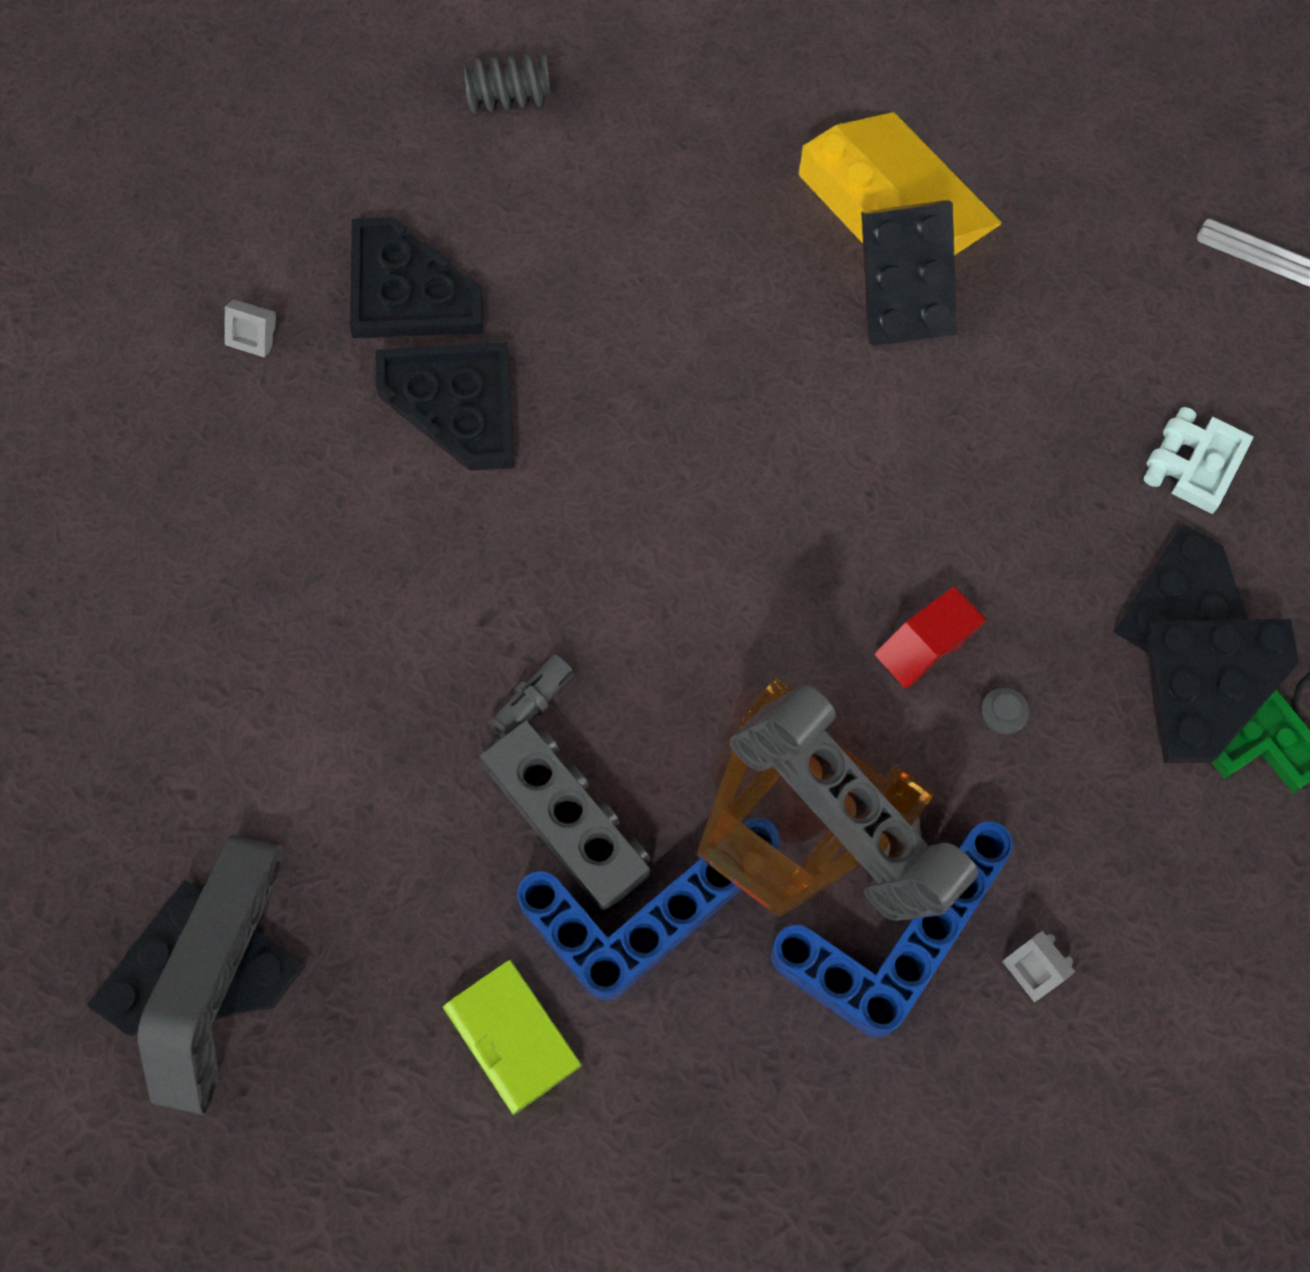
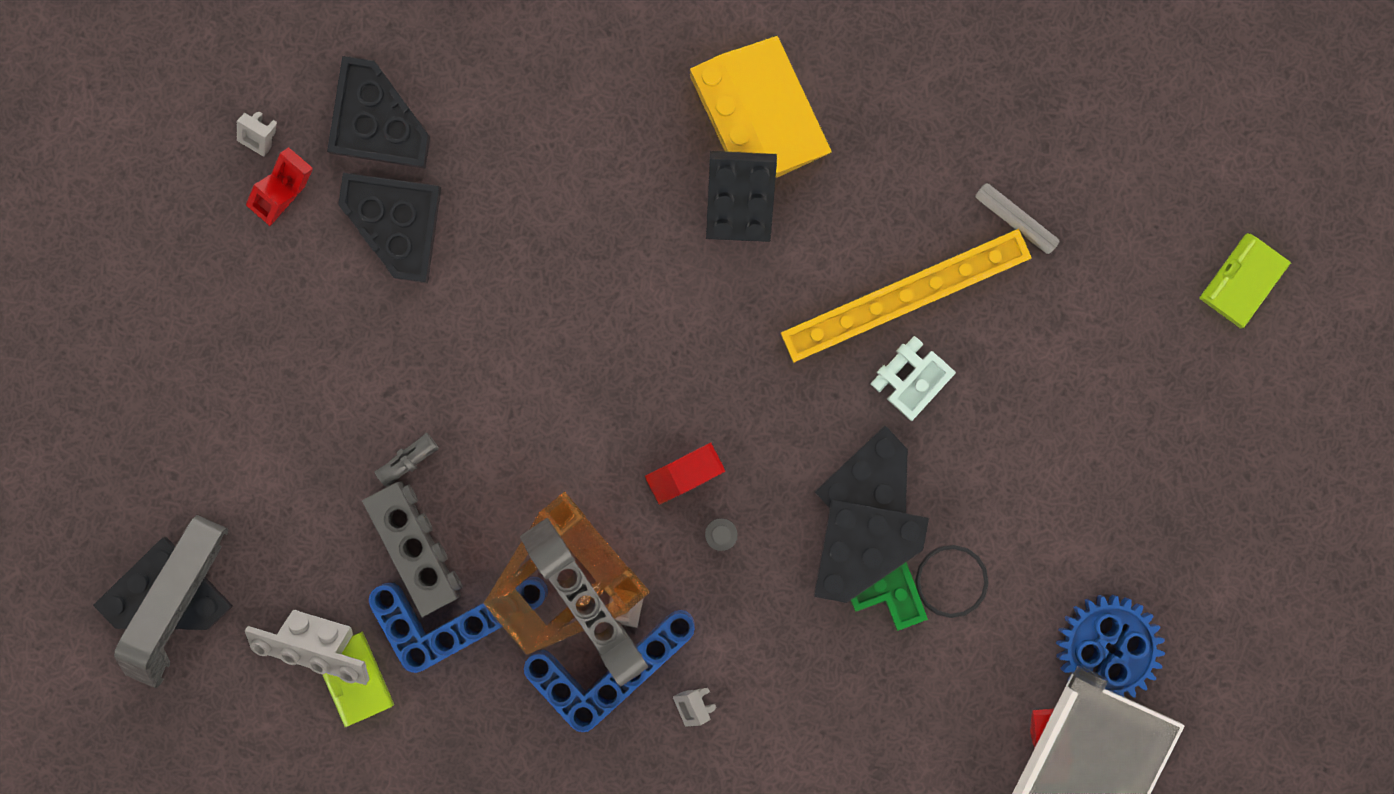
camera: 15 degrees right, 20 degrees up
(287, 395) = (279, 189): none -> red slope
(439, 993) = (312, 644): none -> light grey bracket
(1149, 364) = (905, 295): none -> yellow plate

